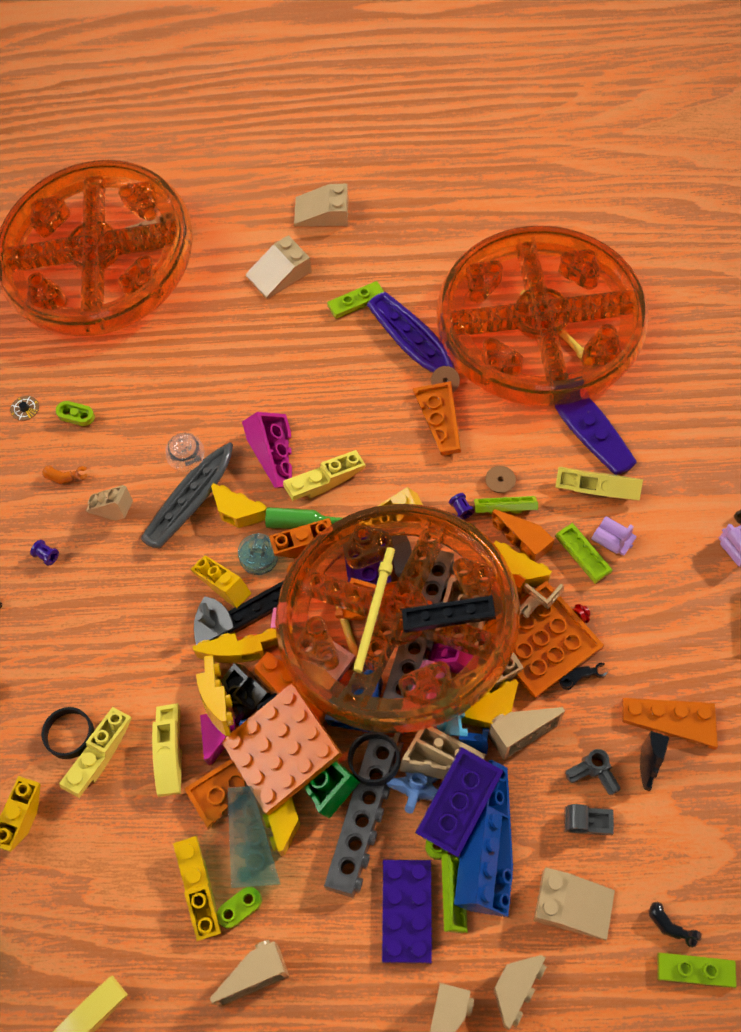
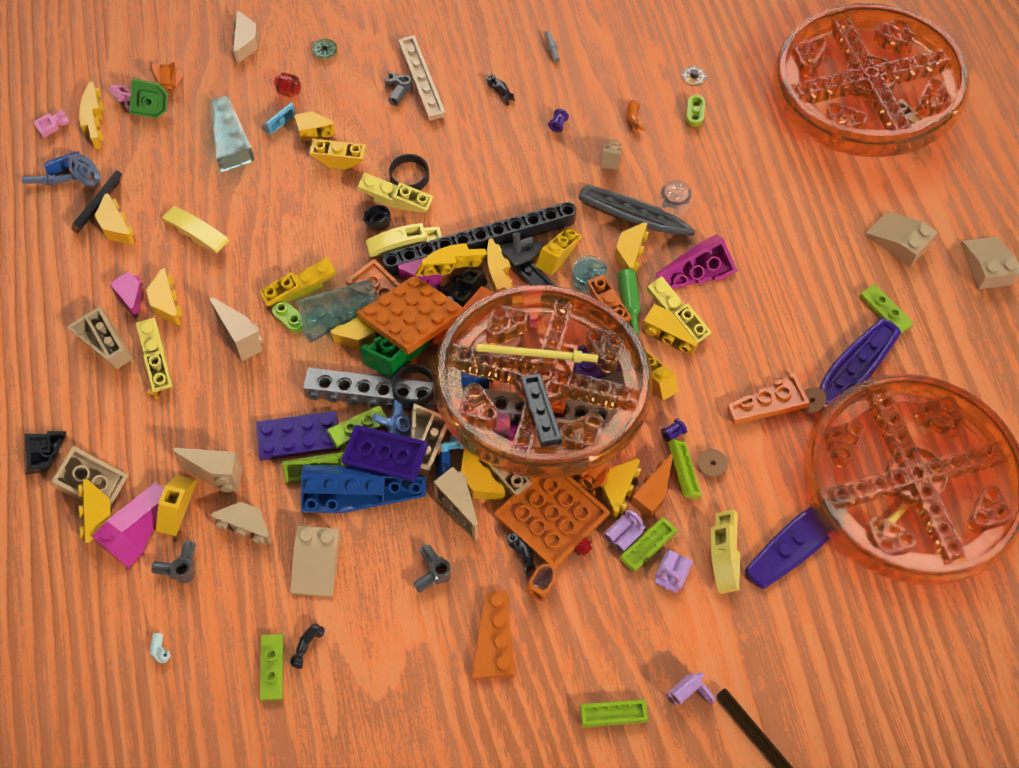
camera: 75 degrees right, 0 degrees up
(125, 777) = (377, 217): none -> black hair
(186, 671) = (526, 224): none -> black beam
(340, 490) = (665, 326): none -> yellow slope
(414, 846) = (342, 432): none -> lime plate
(536, 599) = (586, 501): tan bracket -> none
(567, 571) = (625, 531): none -> lavender piece
(587, 820) = (388, 568): dark grey plate -> none
(618, 659) = (542, 582): none -> rock
(652, 757) = (452, 612): black slope -> none

